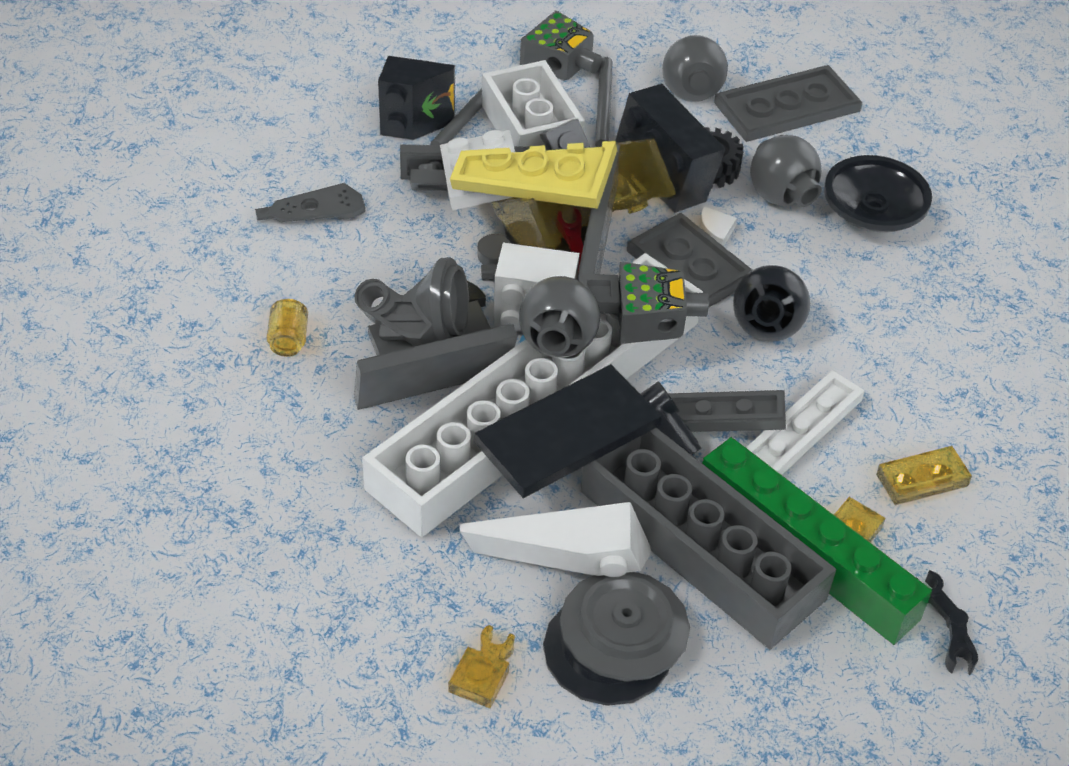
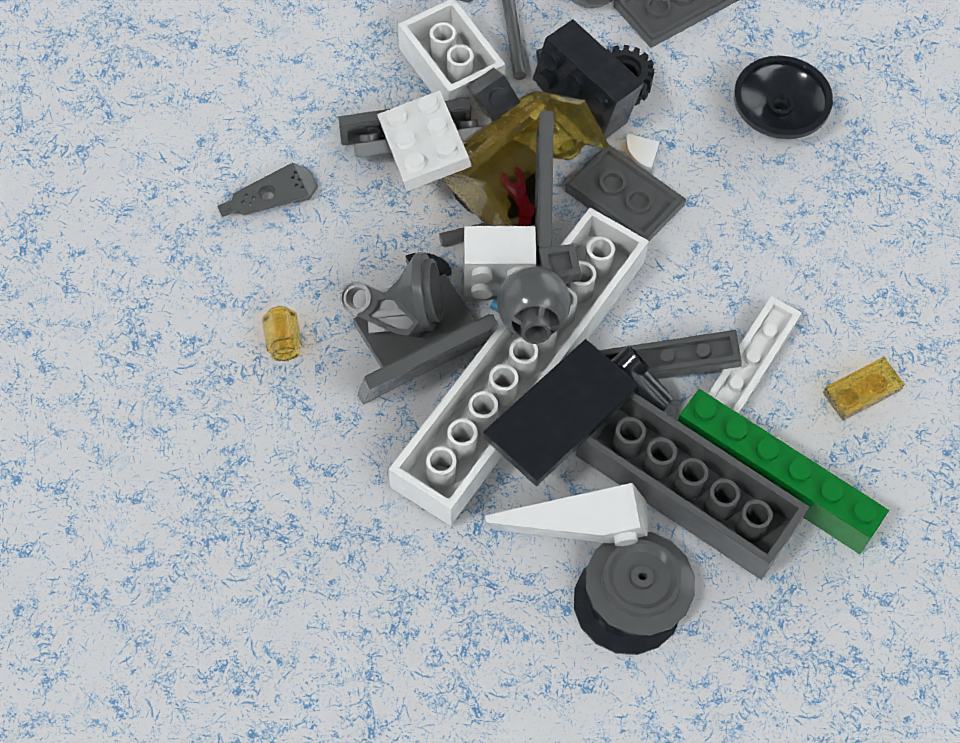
camera: 10 degrees left, 15 degrees up
(415, 97) = (339, 58): black slope -> none
(459, 120) = (381, 70): dark grey bar -> none
(483, 671) = (529, 645): clear yellow plate -> none
(490, 247) = (448, 214): dark grey tile -> none
(555, 176) = (485, 152): light yellow wing -> none
(655, 303) = (612, 267): dark grey torso -> none
(771, 303) = (709, 238): black brick -> none
(787, 171) = (698, 87): dark grey brick -> none
(860, 518) = (815, 445): clear yellow plate -> none
(956, 620) = (908, 524): black piece -> none

